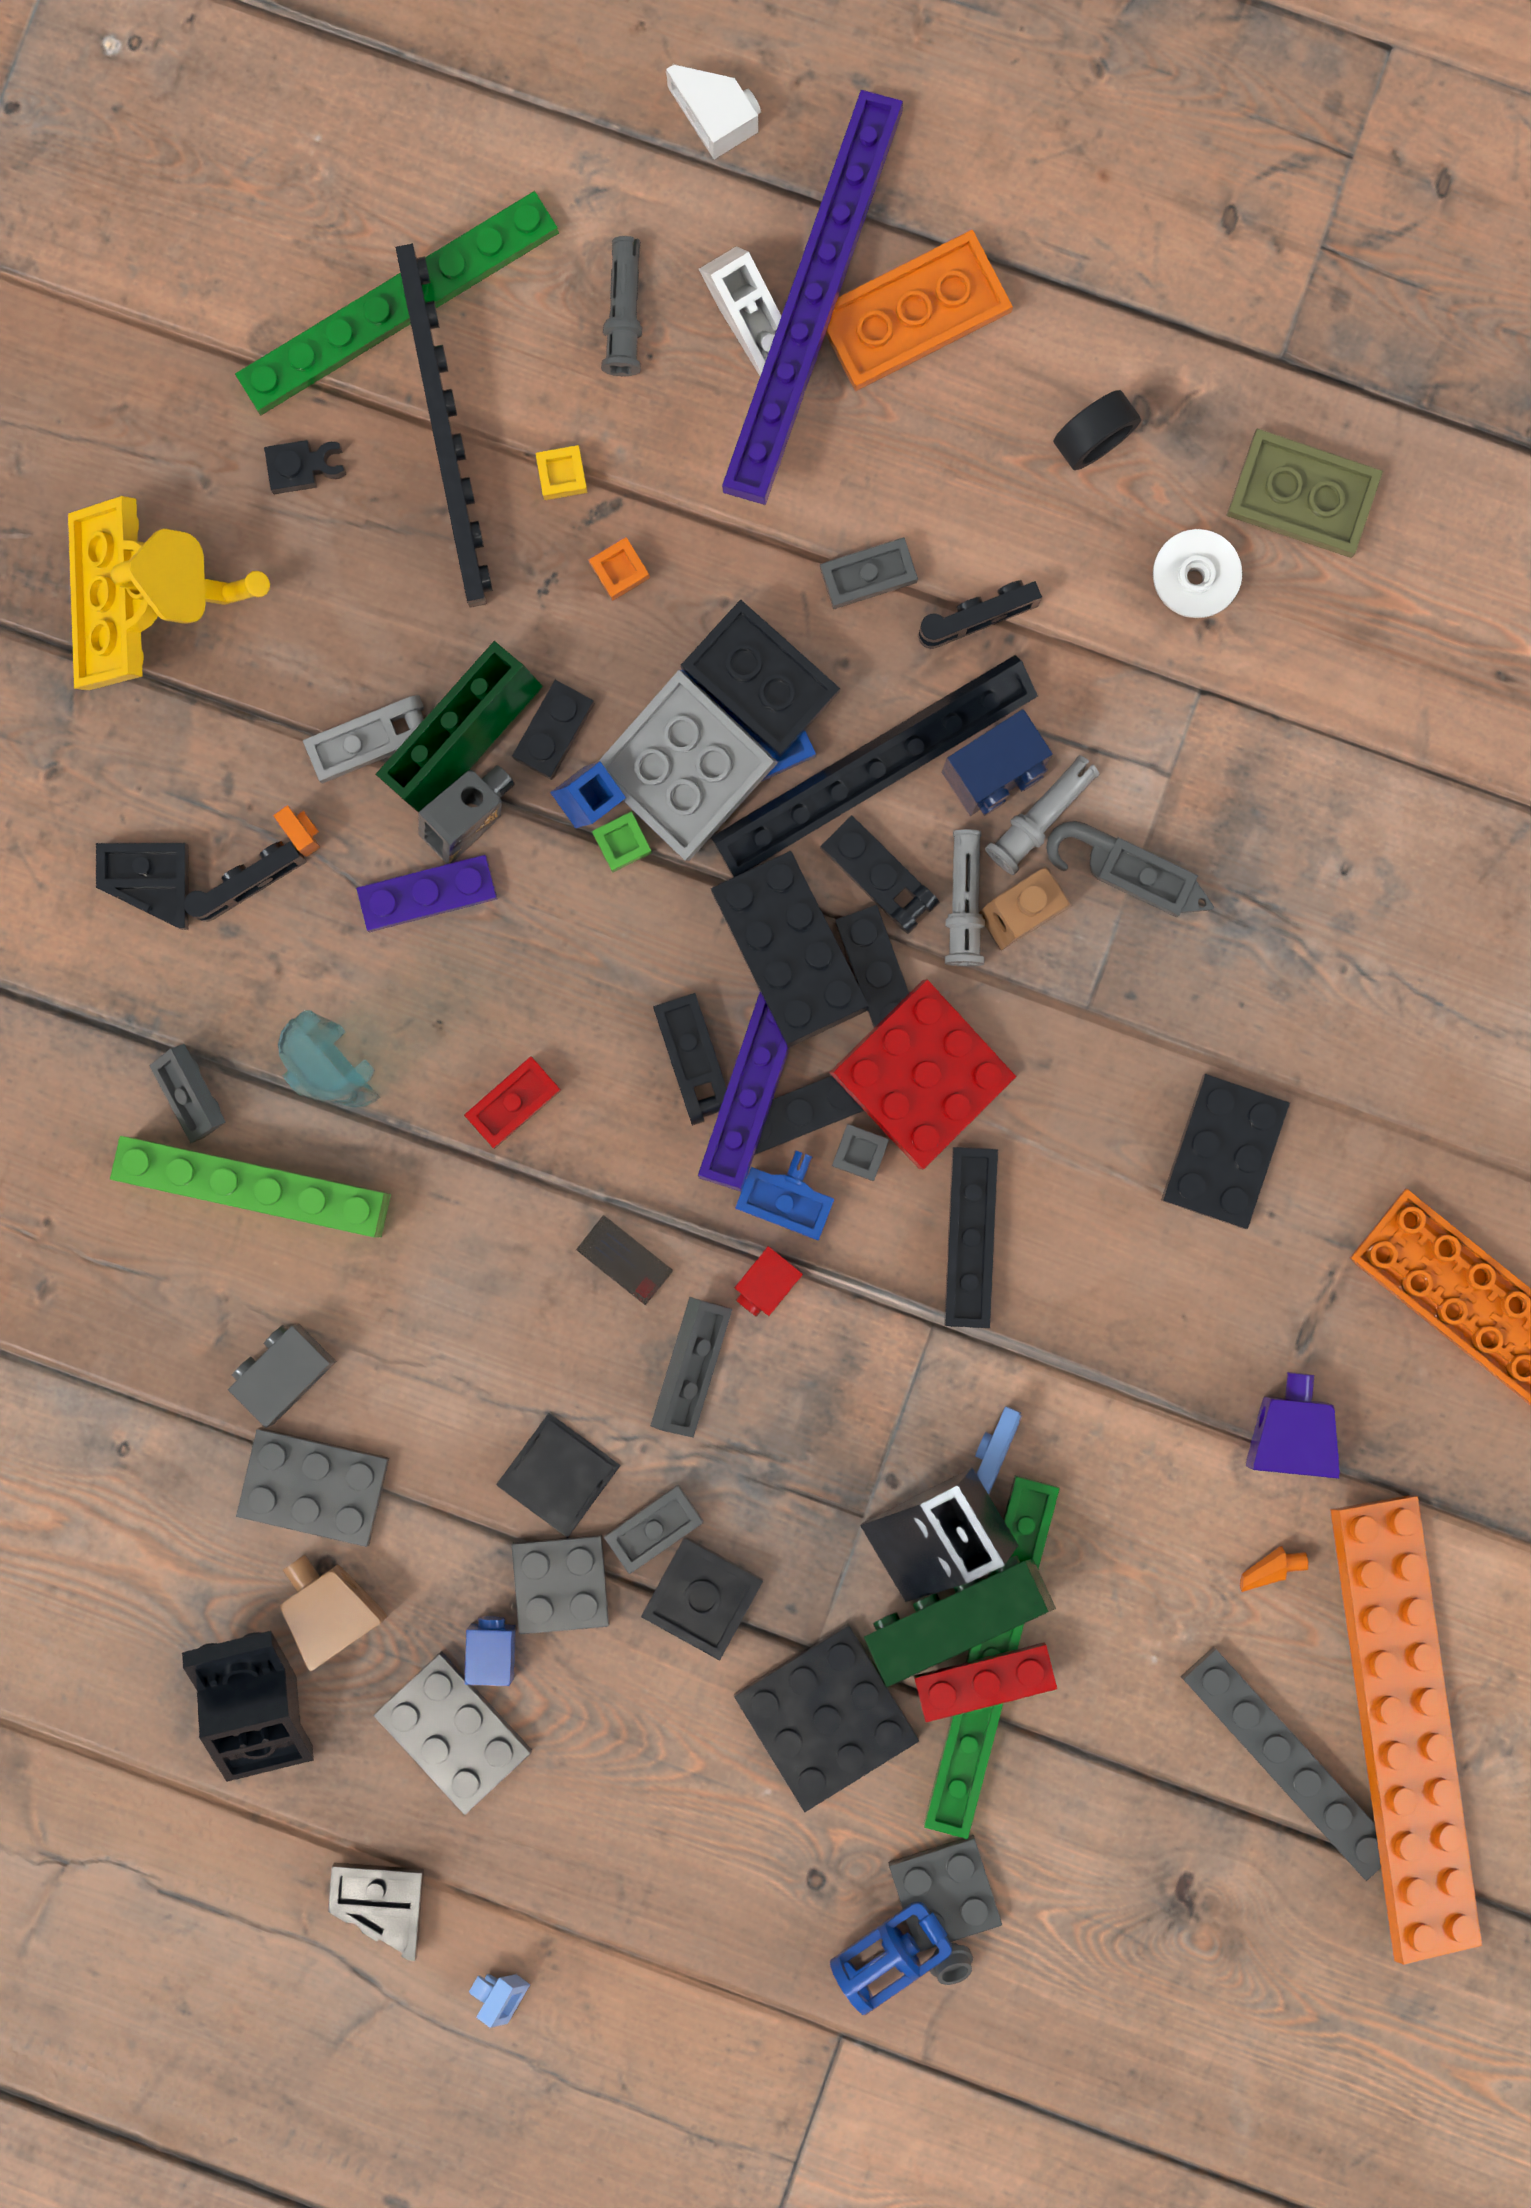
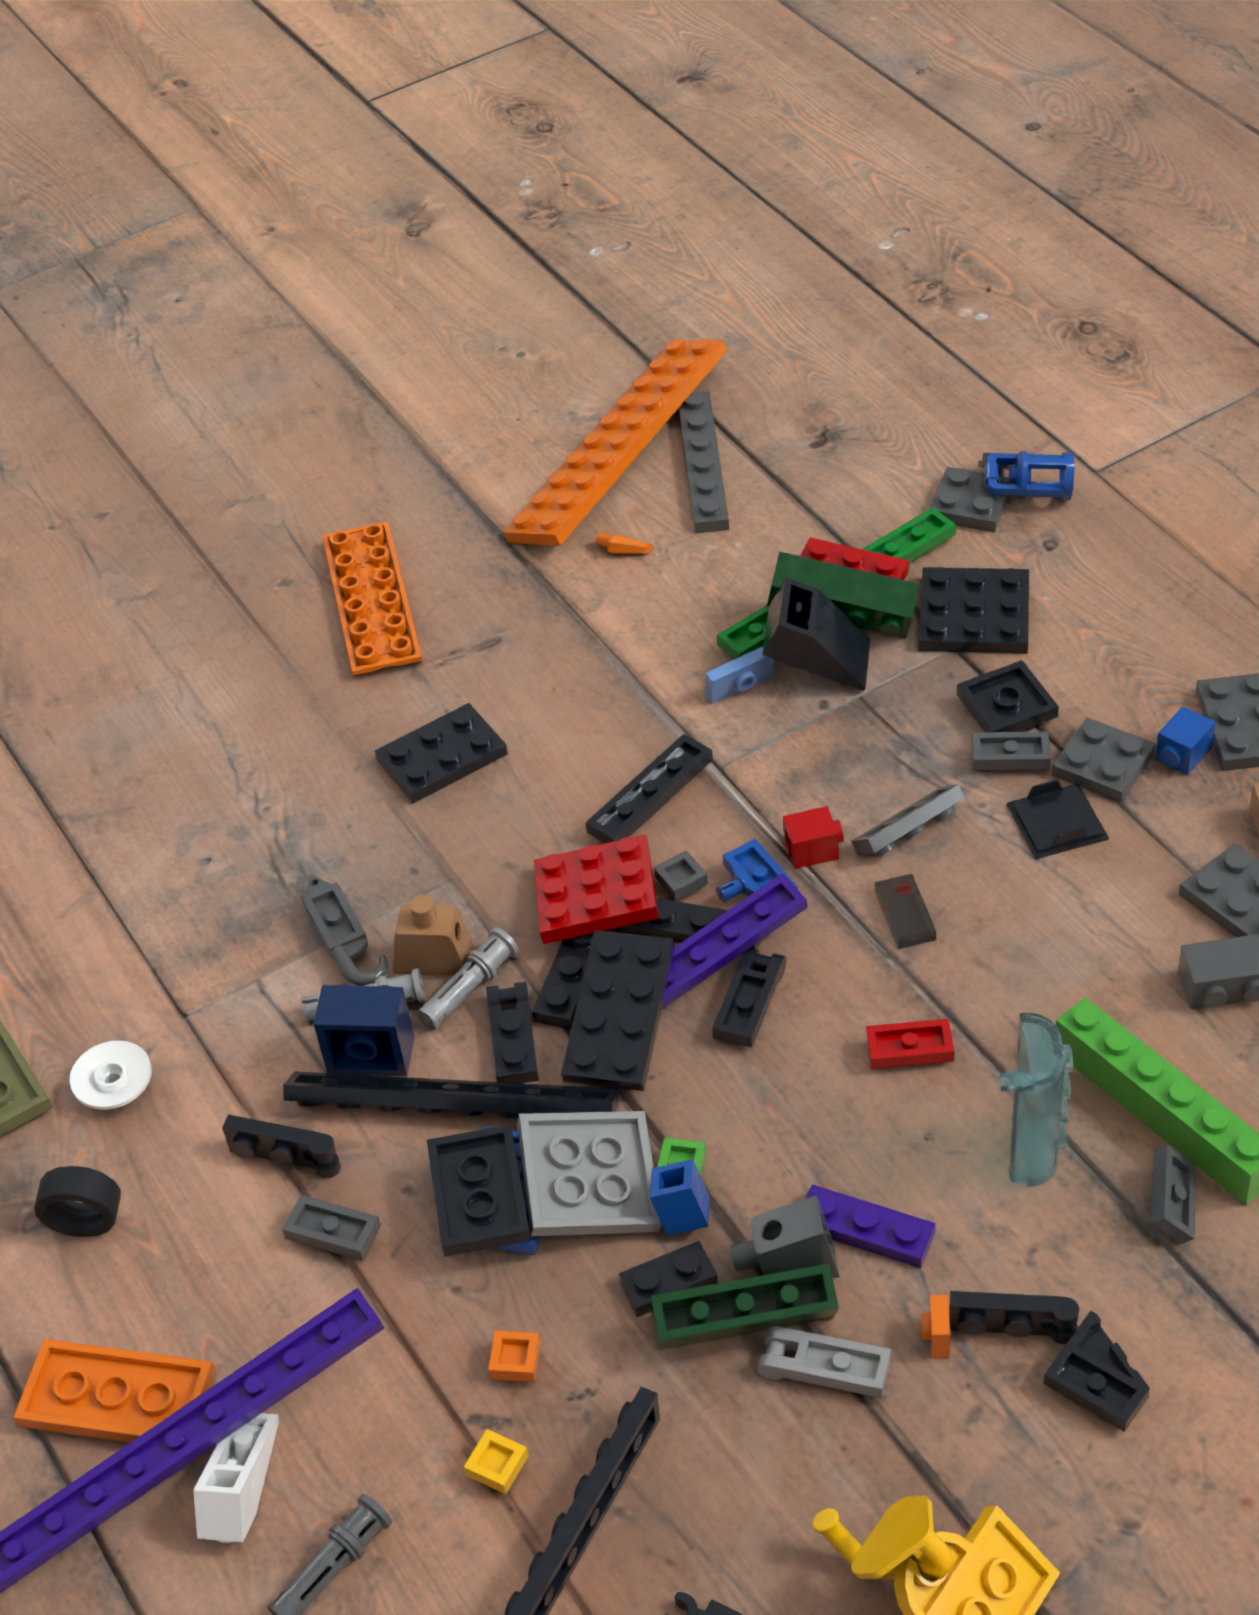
camera: 140 degrees left, 40 degrees down
(1295, 1433) = (545, 591): dark purple torso -> none

